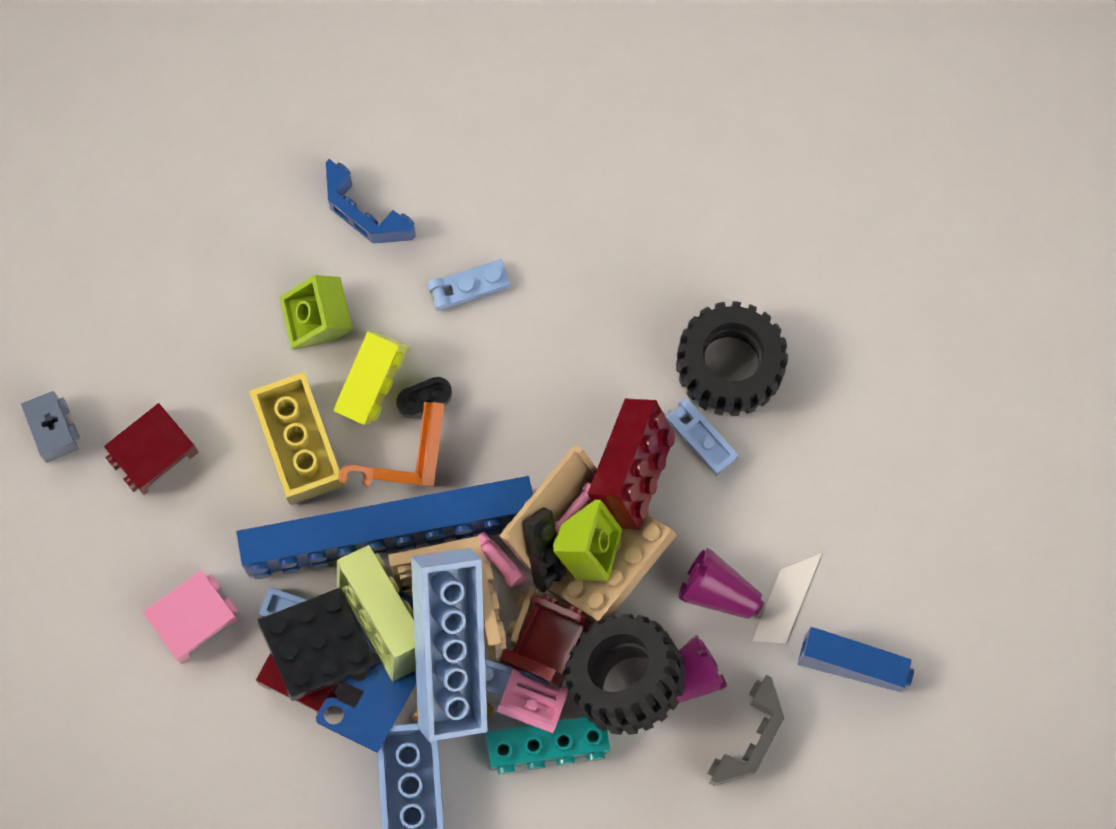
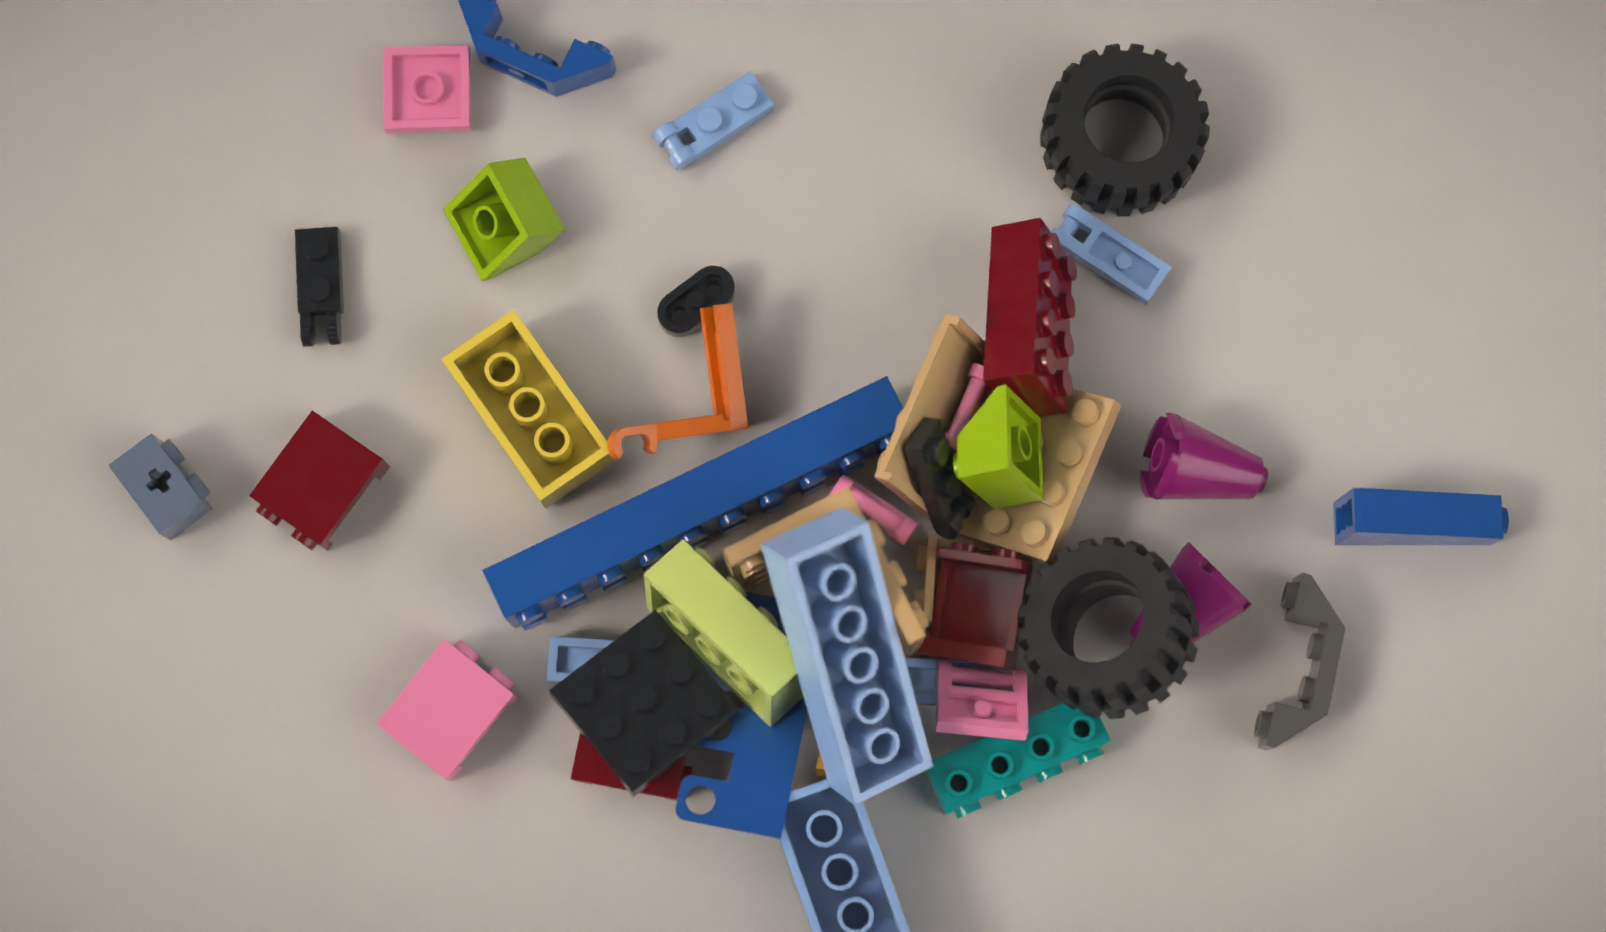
camera: 15 degrees left, 5 degrees up
(187, 322) = (319, 281): none -> black hinge
(290, 217) = (427, 89): none -> bright pink plate
(370, 377) = (611, 293): neon yellow wedge -> none
(785, 601) = (1293, 459): white sticker -> none

